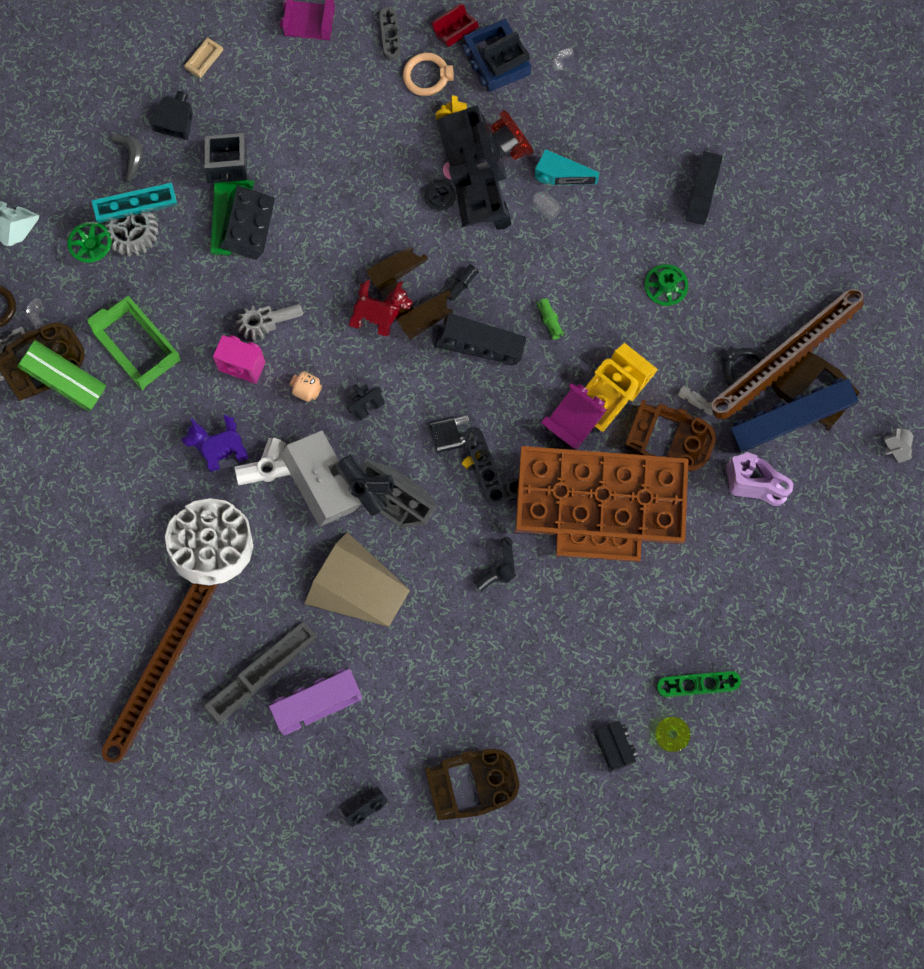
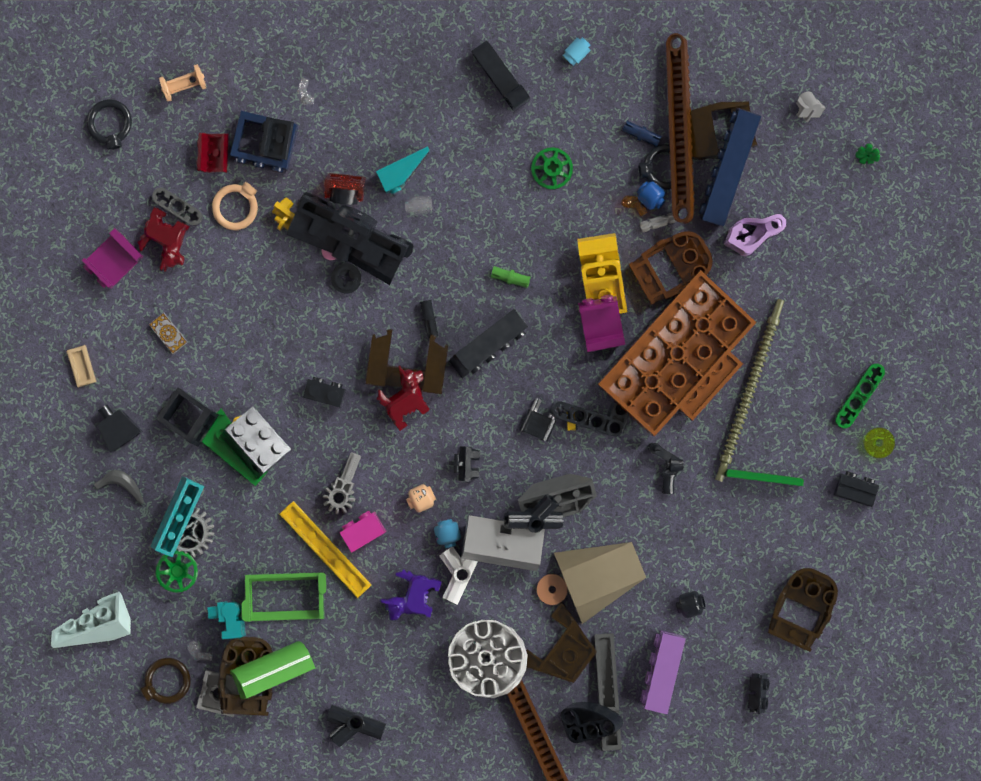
camera: 50 degrees left, 15 degrees up
(58, 478) = (347, 730): none -> black piece
(83, 308) = (231, 614): none -> teal hips
(201, 347) = (325, 549): none -> yellow tile
(221, 672) = (586, 715): none -> black beam
(269, 612) = (569, 654): none -> dark brown wing
(283, 100) = (168, 333): none -> tile
(293, 429) = (447, 533): none -> dark azure head
(307, 548) = (552, 580): none -> nougat piece
(332, 247) = (324, 393): none -> black brick
(360, 43) = (168, 236): none -> dark red animal
(396, 681) = (691, 604): none -> black head
(548, 612) = (773, 322): none -> olive hose
(558, 656) = (764, 477): none -> green tile
(696, 370) = (633, 202): none -> clear orange arm
(714, 376) = (651, 195): none -> blue head
(757, 330) = (641, 133): none -> dark blue pin
(776, 229) = (576, 51): none -> medium azure brick
(905, 524) = (868, 154): none -> green plant

